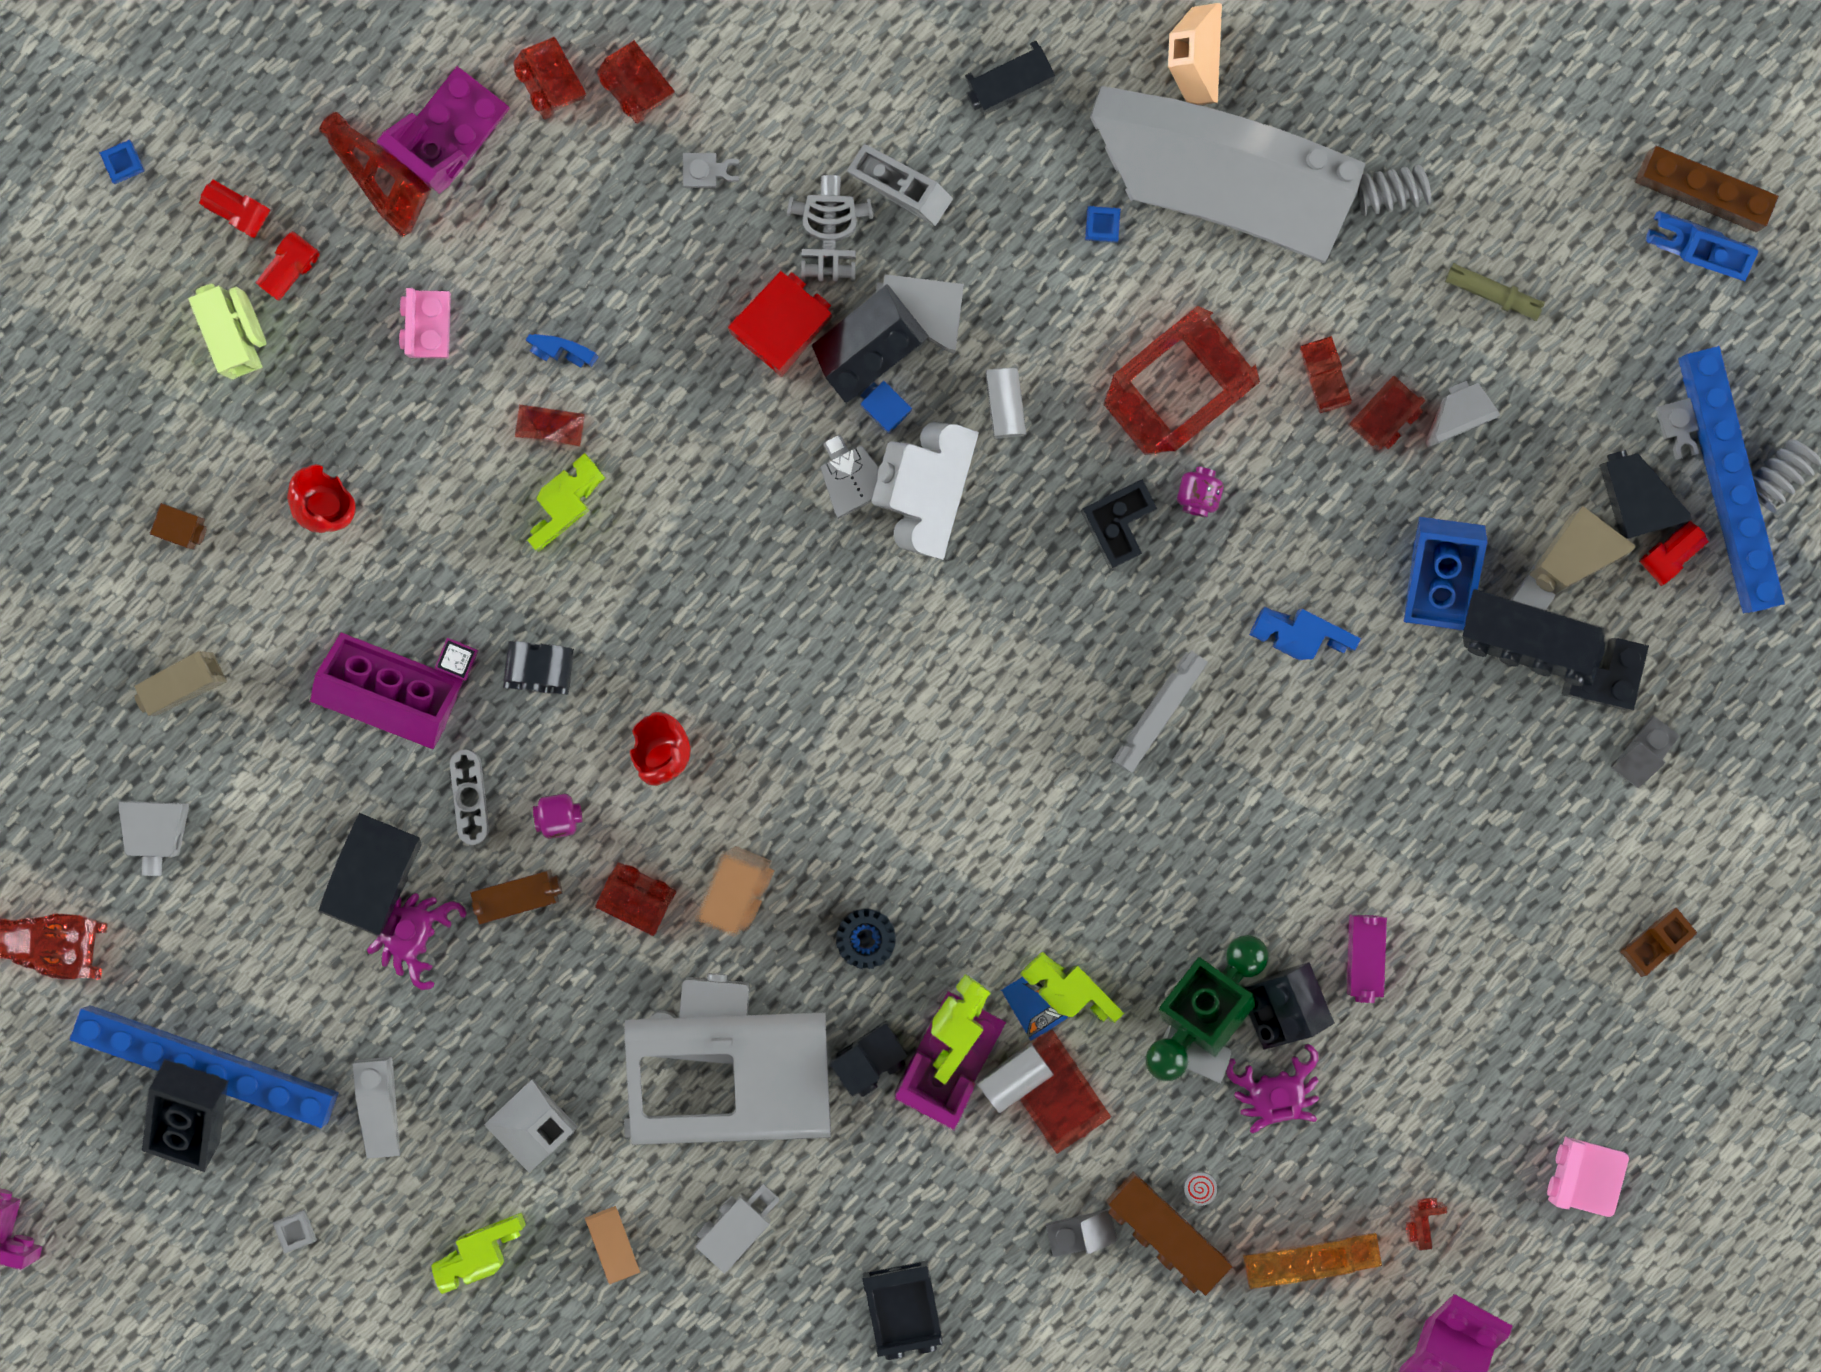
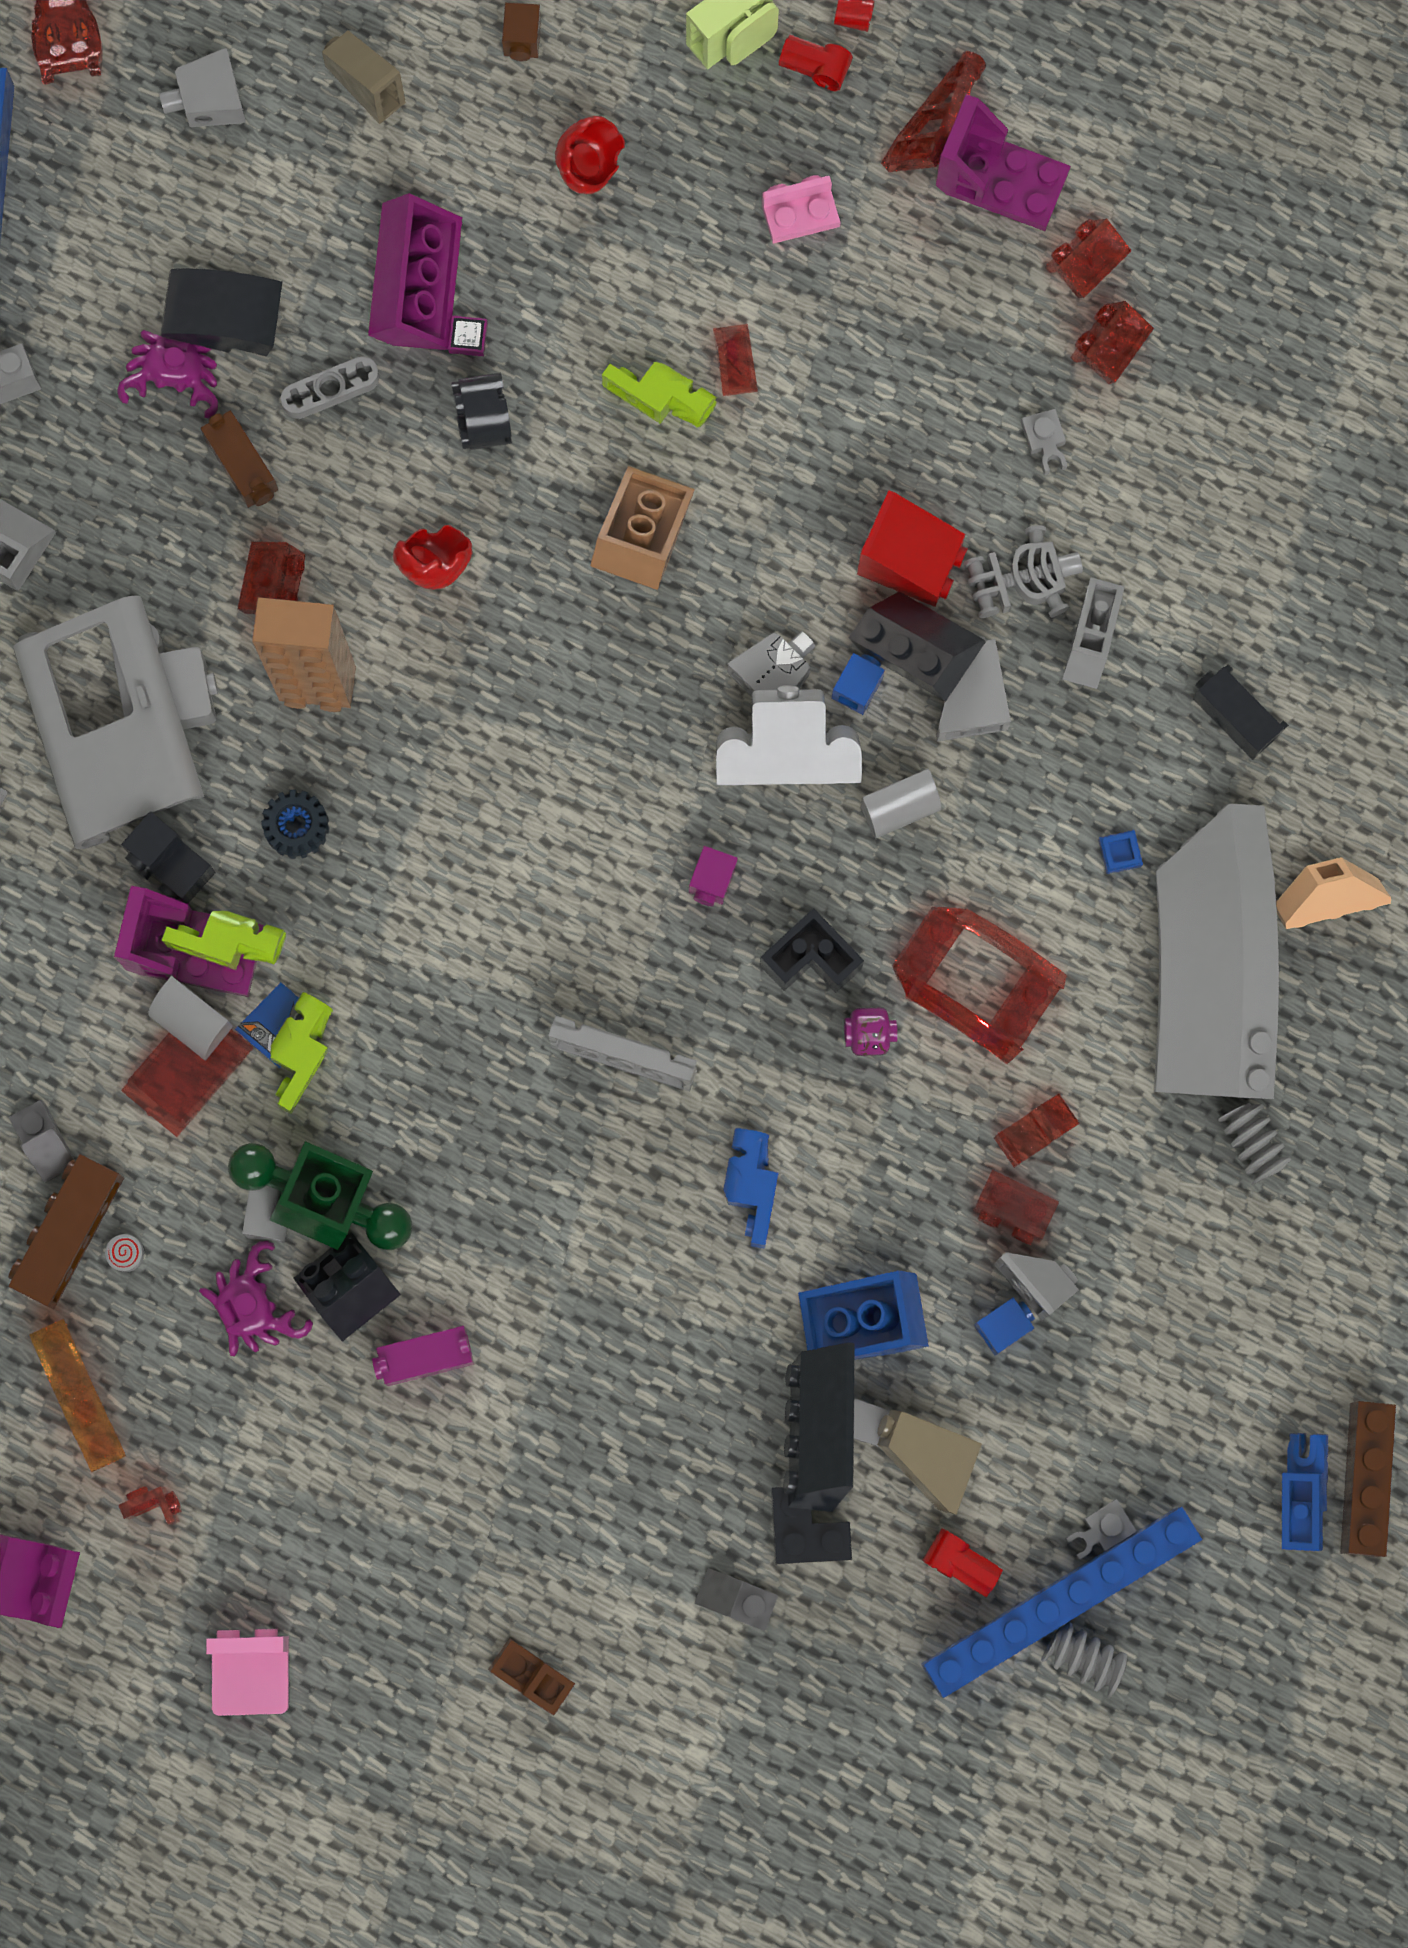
camera: 70 degrees right, 10 degrees down
(551, 346) = (815, 340): blue slope -> none
(557, 816) = (334, 476): magenta head -> none
(684, 554) = (642, 527): none -> medium nougat slope
(1022, 587) = (712, 876): none -> magenta brick
(1486, 454) = (1005, 1325): none -> blue brick
(1496, 292) = (1182, 1288): olive pin -> none
(1639, 496) = (1011, 1506): black slope -> none

